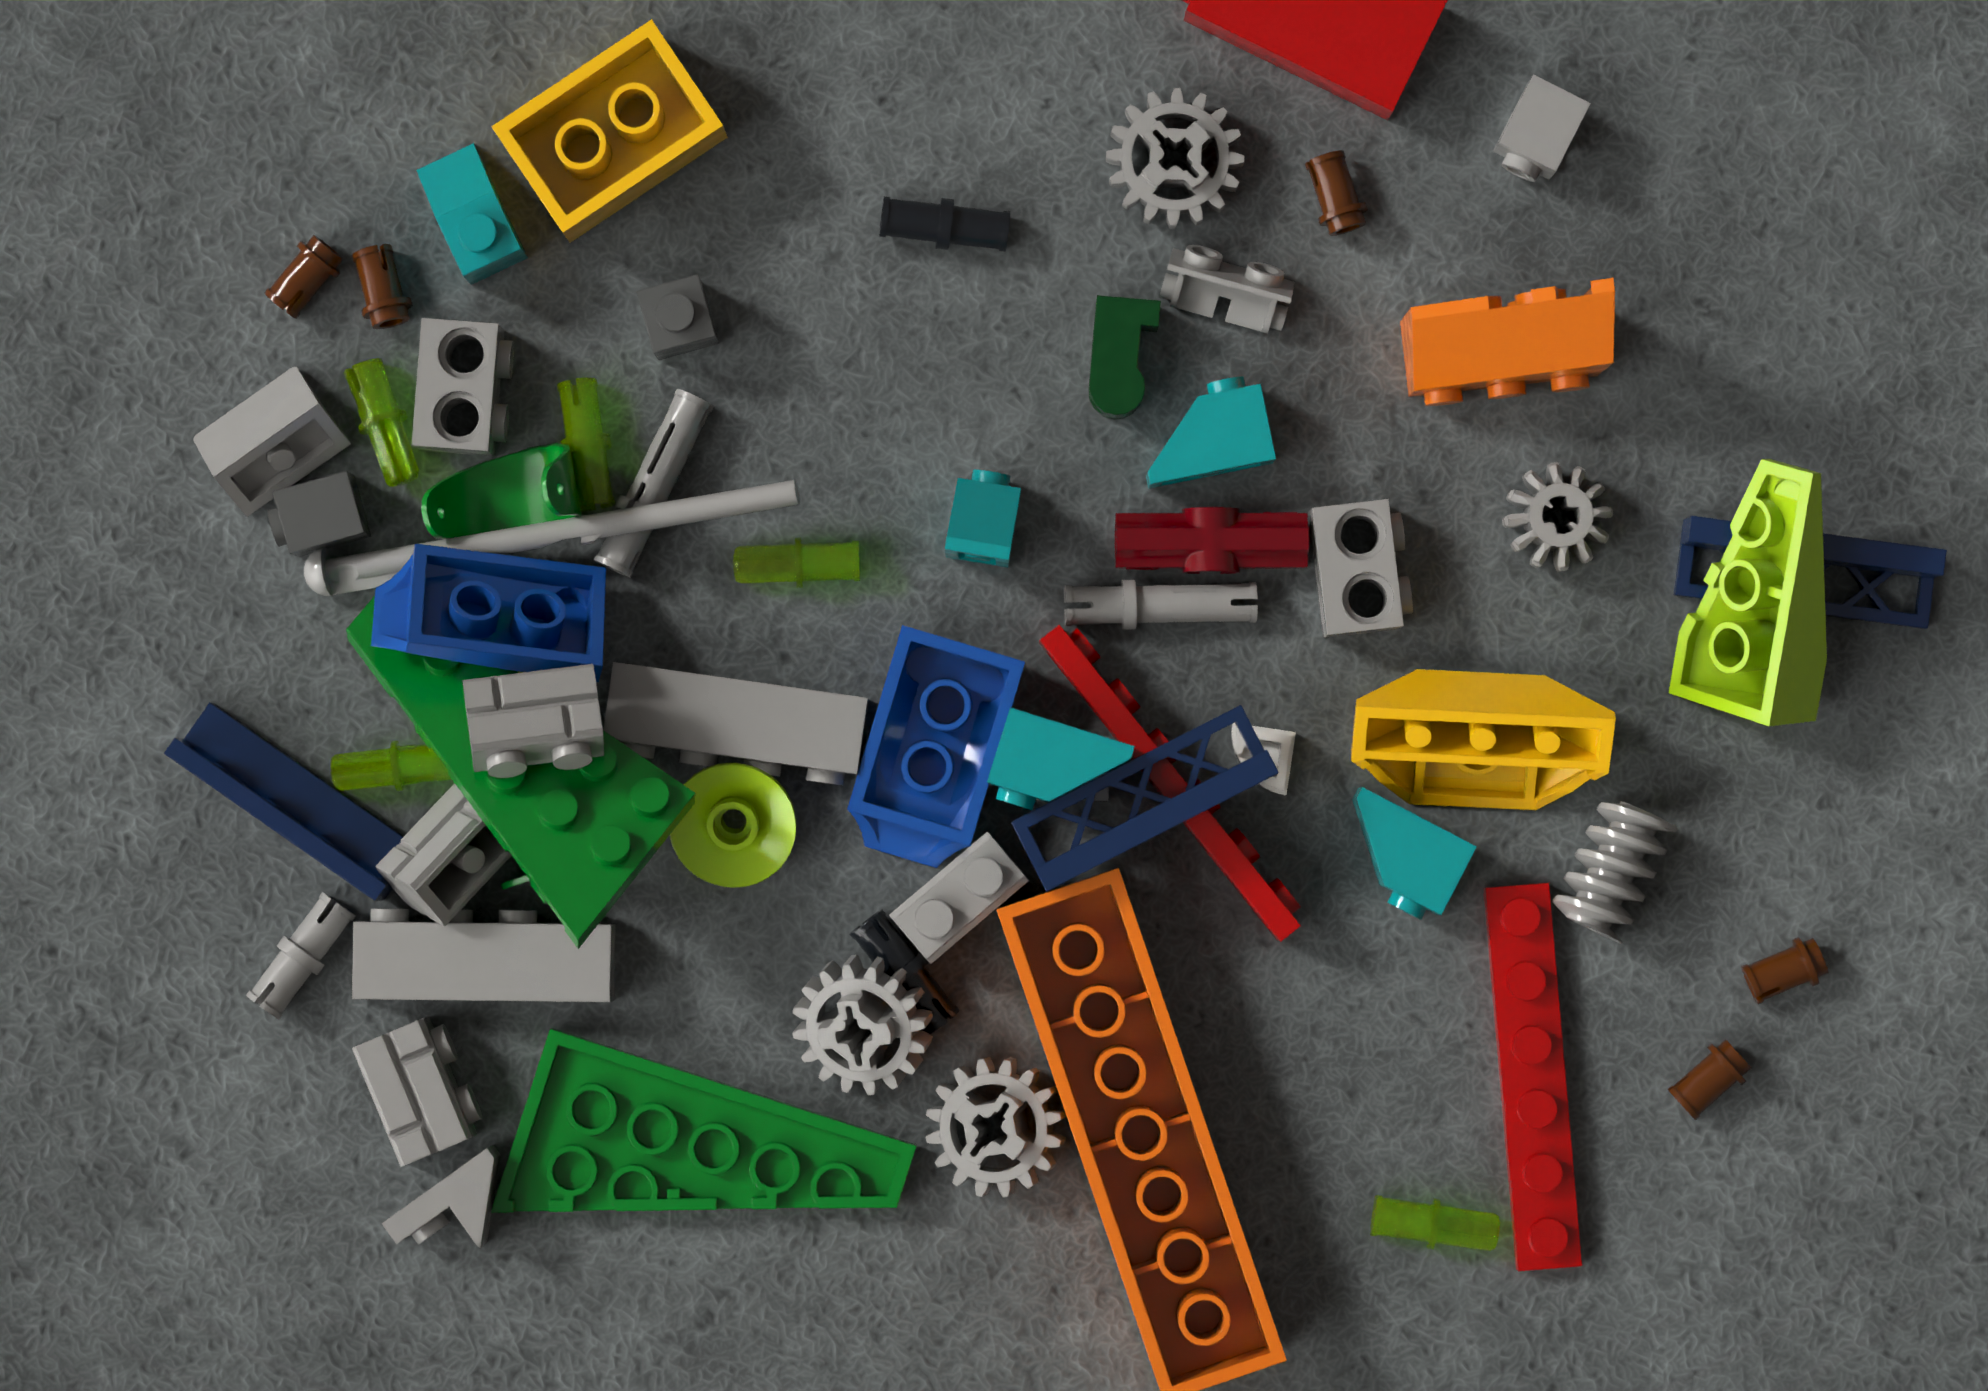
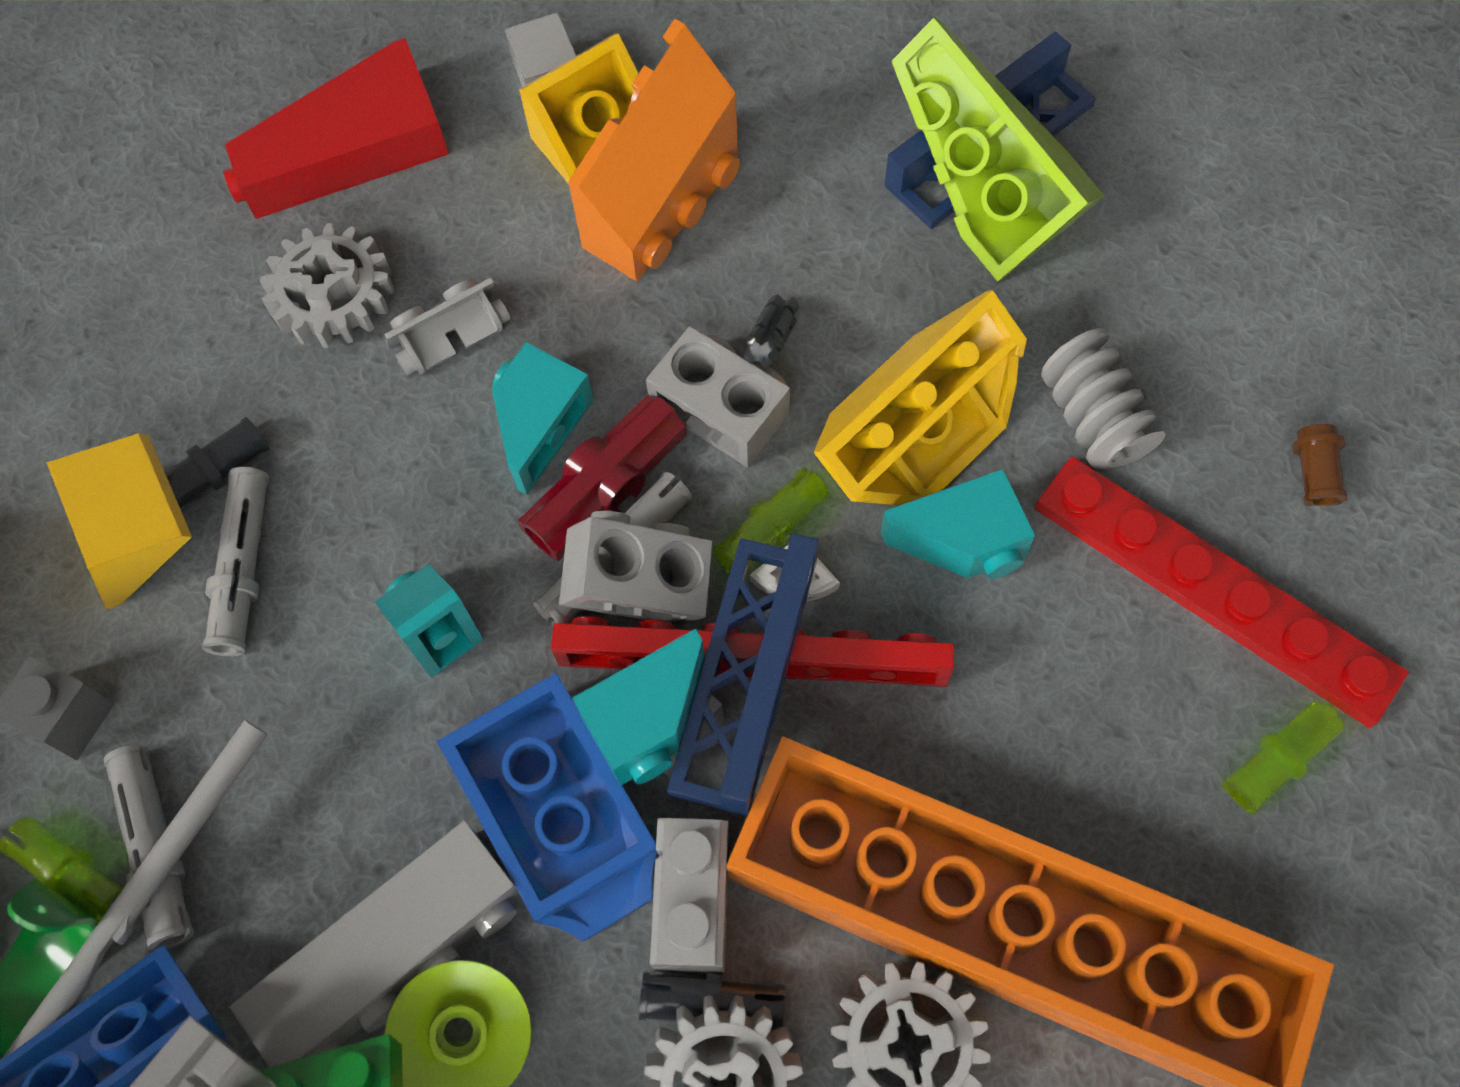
camera: 45 degrees left, 20 degrees down
(797, 562) = (318, 790): clear neon green axle -> none
(851, 214) = (120, 513): none -> yellow slope
(898, 326) = (224, 628): none -> light grey pin
(1114, 379) = (421, 439): dark green leg -> none
(1145, 651) = (636, 583): none -> light grey brick
(1290, 701) = (773, 519): none -> clear neon green pin
(1336, 193) = (470, 216): reddish brown pin -> none
(1447, 561) = (771, 330): none -> black axle
(1522, 227) = (576, 100): none -> yellow slope
(1545, 534) = (808, 245): light grey gear -> none
(1785, 970) = (1277, 343): reddish brown pin -> none

